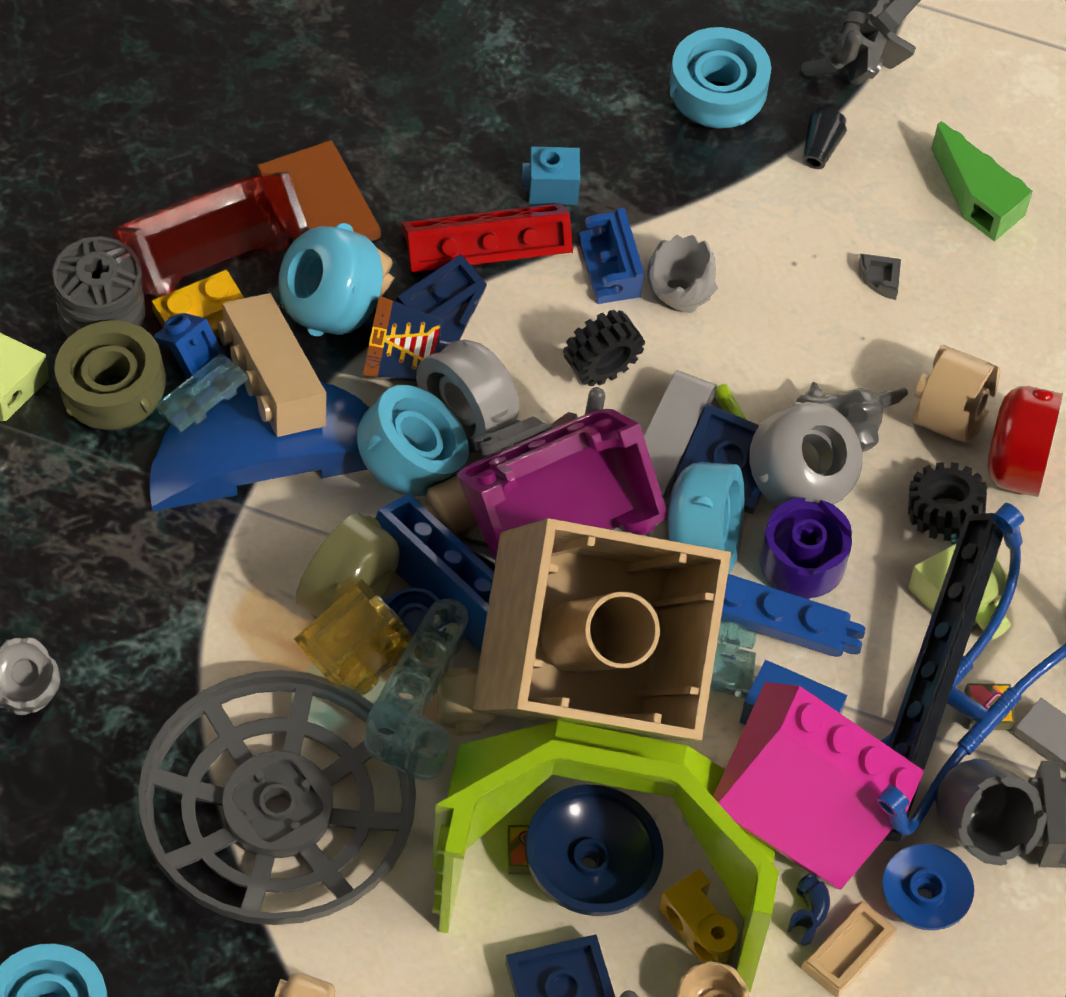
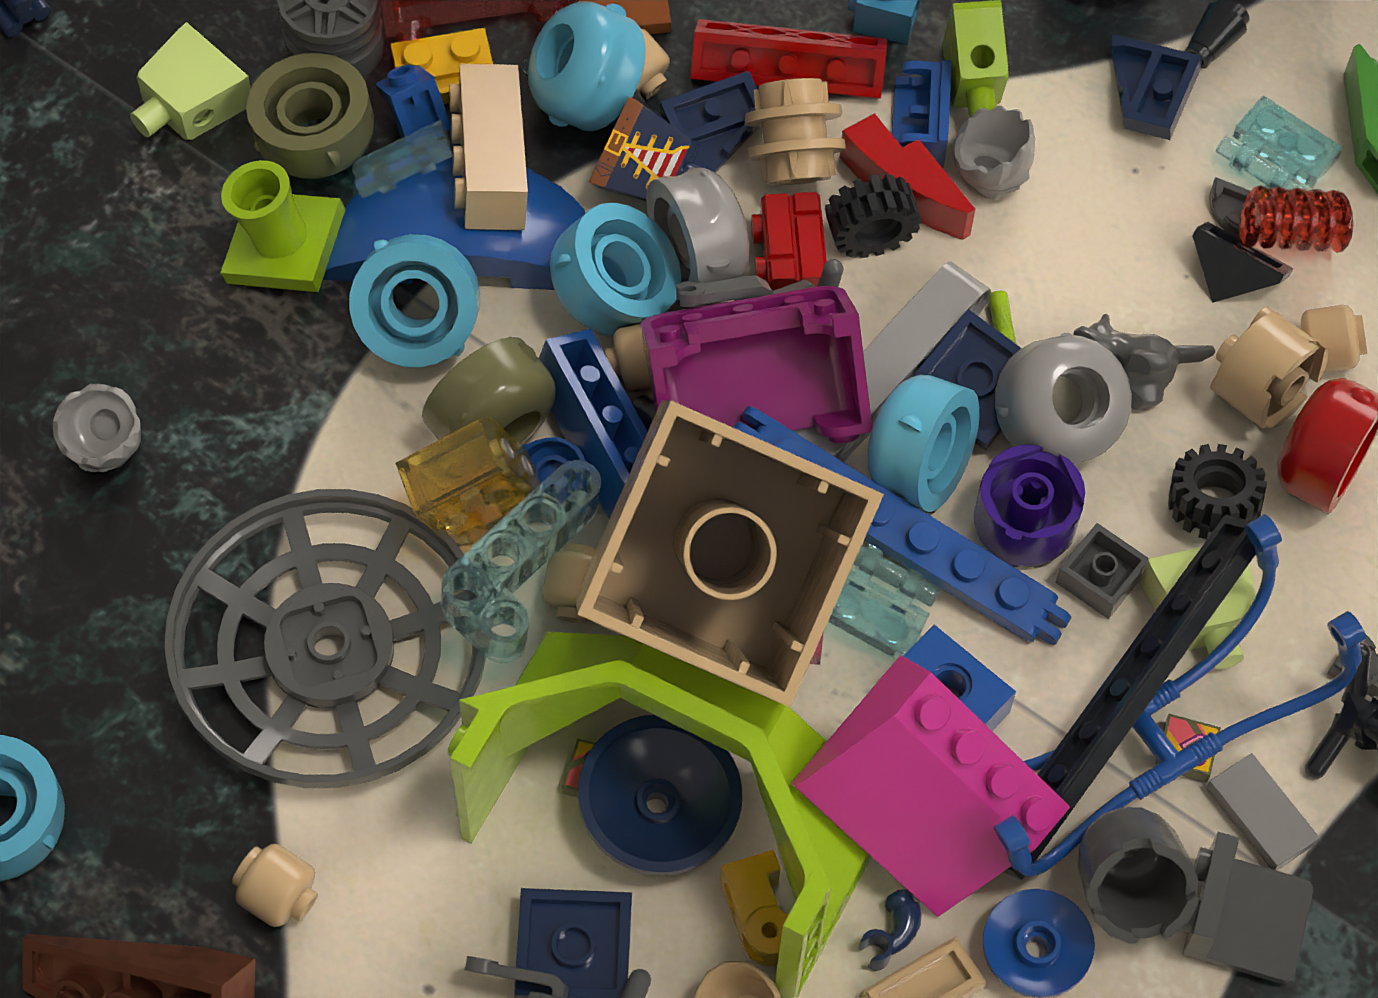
camera: 20 degrees right, 5 degrees up
(115, 478) = (279, 235): none -> lime plant
(279, 531) = (398, 336): none -> medium azure piece
(518, 294) = (794, 131): none -> tan piece
(544, 382) = (790, 239): none -> red brick
(585, 296) = (939, 201): none -> red slope
(645, 195) = (978, 54): none -> lime torso
(786, 191) = (1152, 84): none -> dark blue wing
(877, 585) = (1102, 570): none -> dark grey piece
(899, 320) = (1233, 268): none -> black slope
(906, 213) = (1283, 140): none -> clear light blue plate
(937, 271) = (1296, 218): none -> clear red piece
(1000, 351) = (1339, 333): none -> tan head

